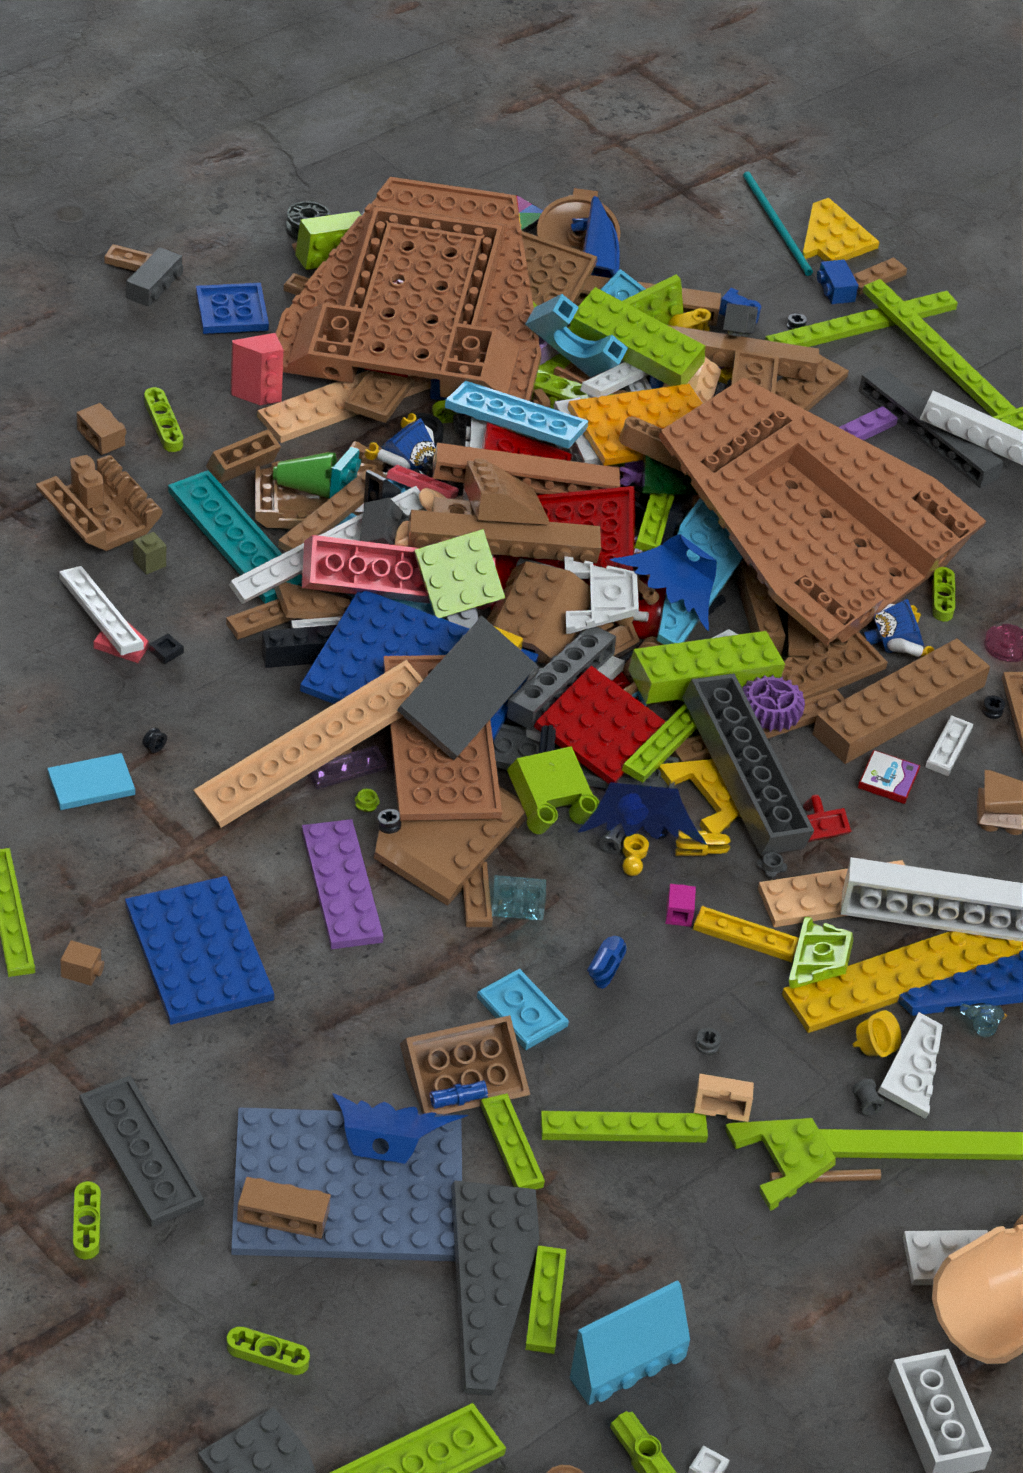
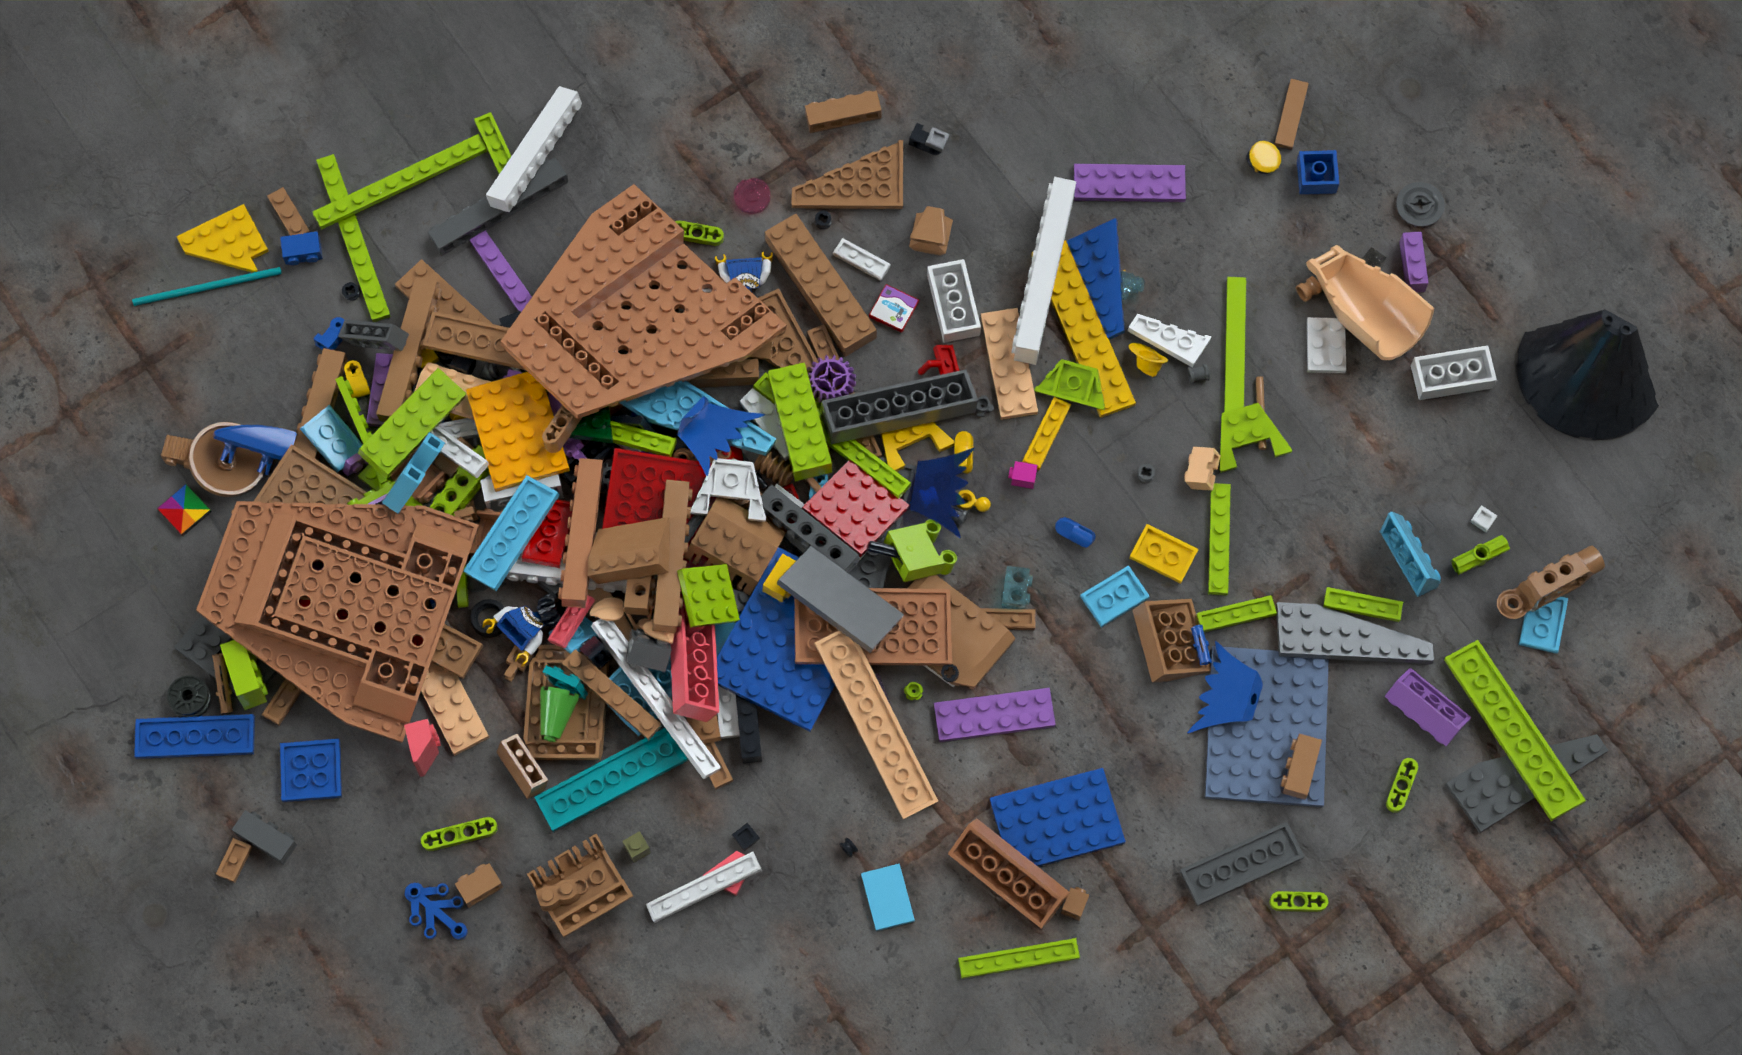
camera: 80 degrees left, 25 degrees up
(91, 388) = (434, 908): none -> blue plant
(119, 884) = (1008, 873): none -> nougat brick
(265, 229) = (194, 736): none -> blue plate
(393, 1381) = (1427, 707): none -> medium lavender slope
(591, 1059) = (1163, 553): none -> yellow plate
(911, 825) = (953, 301): none -> white brick

